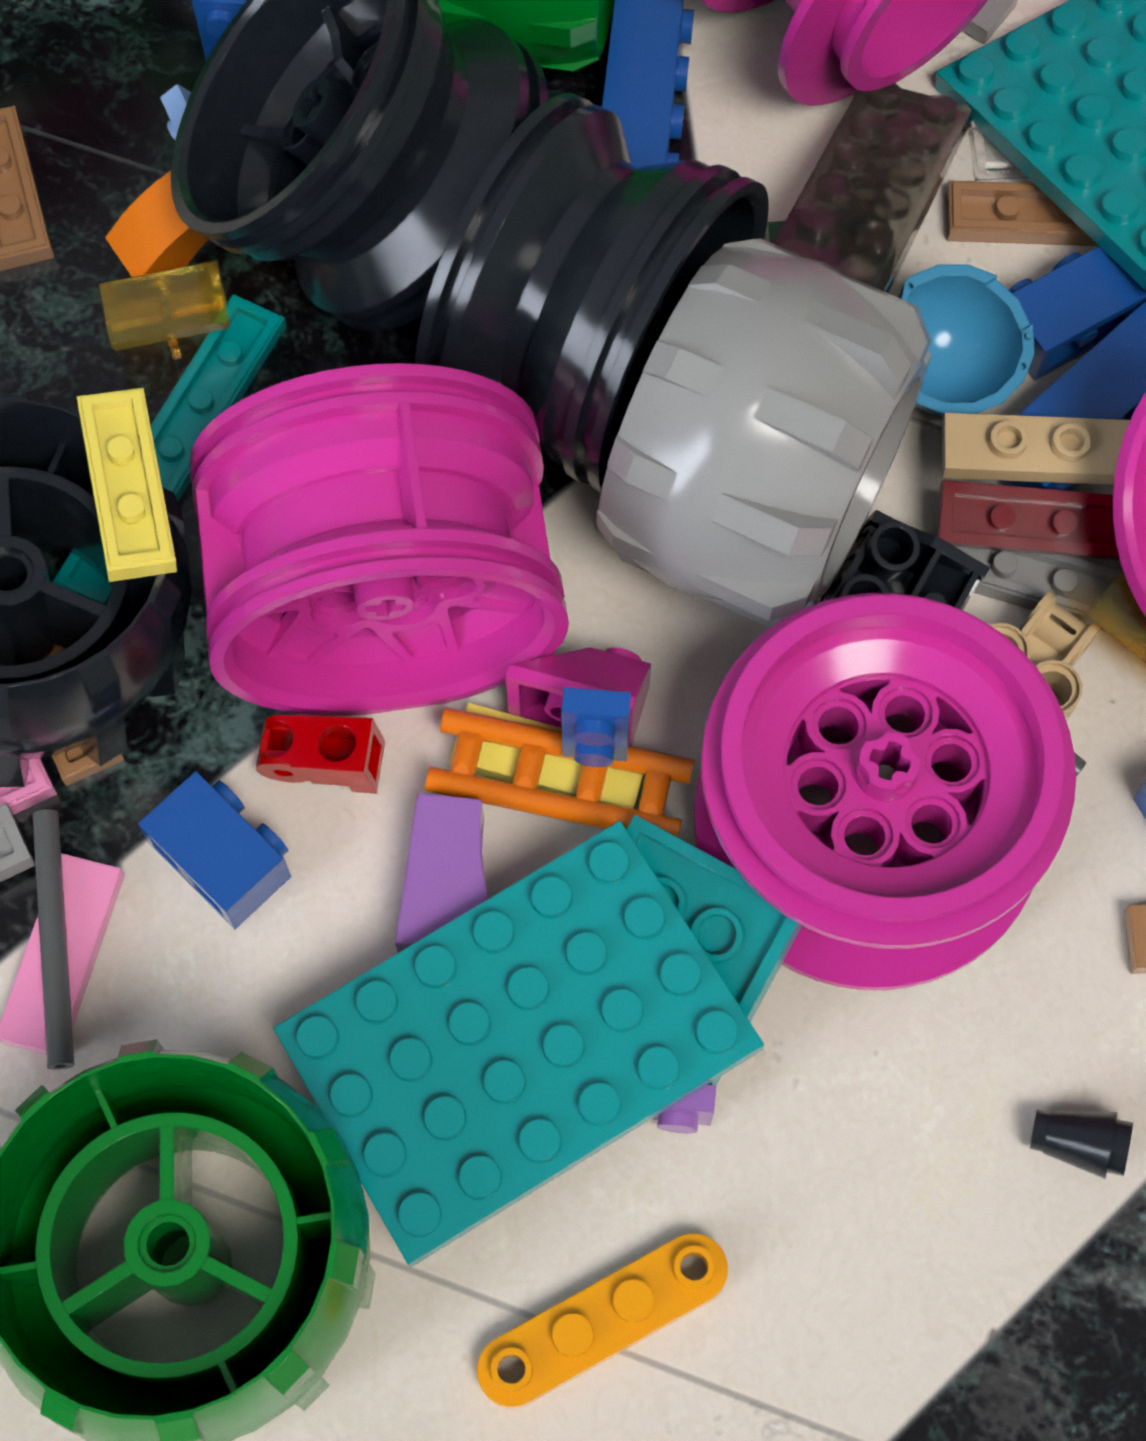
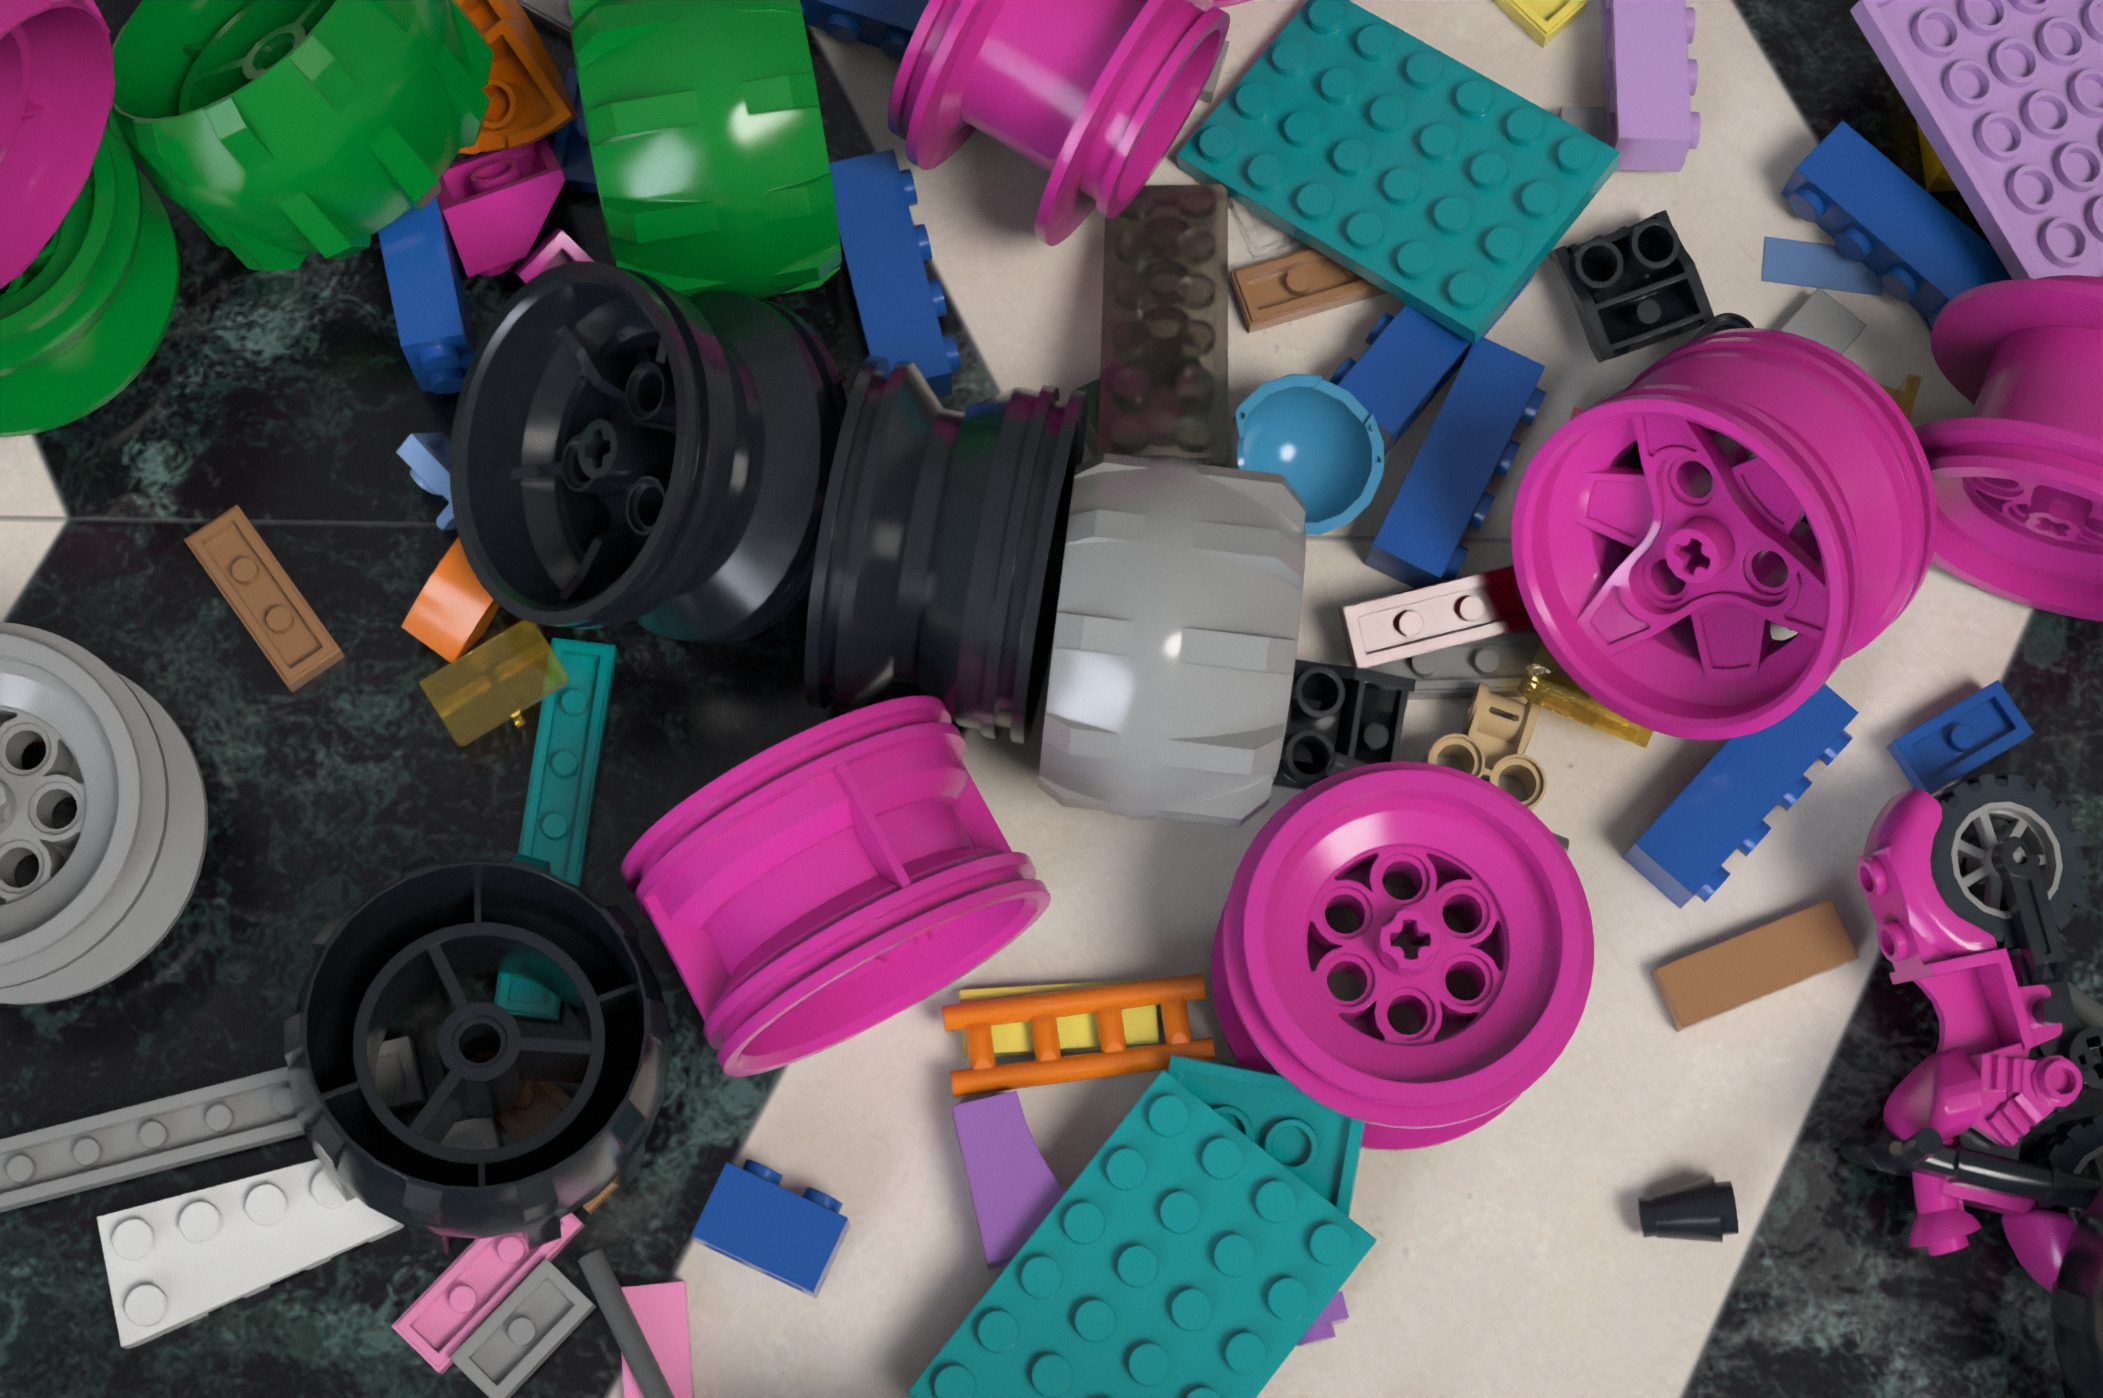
camera: 25 degrees left, 5 degrees up
(126, 485) = (576, 920): light yellow tile -> none
(322, 751) = (834, 1092): red leg -> none
(538, 683) = (1076, 942): dark pink slope -> none
(595, 726) = (1107, 987): blue plate -> none
(1031, 448) = (1418, 544): tan plate -> none

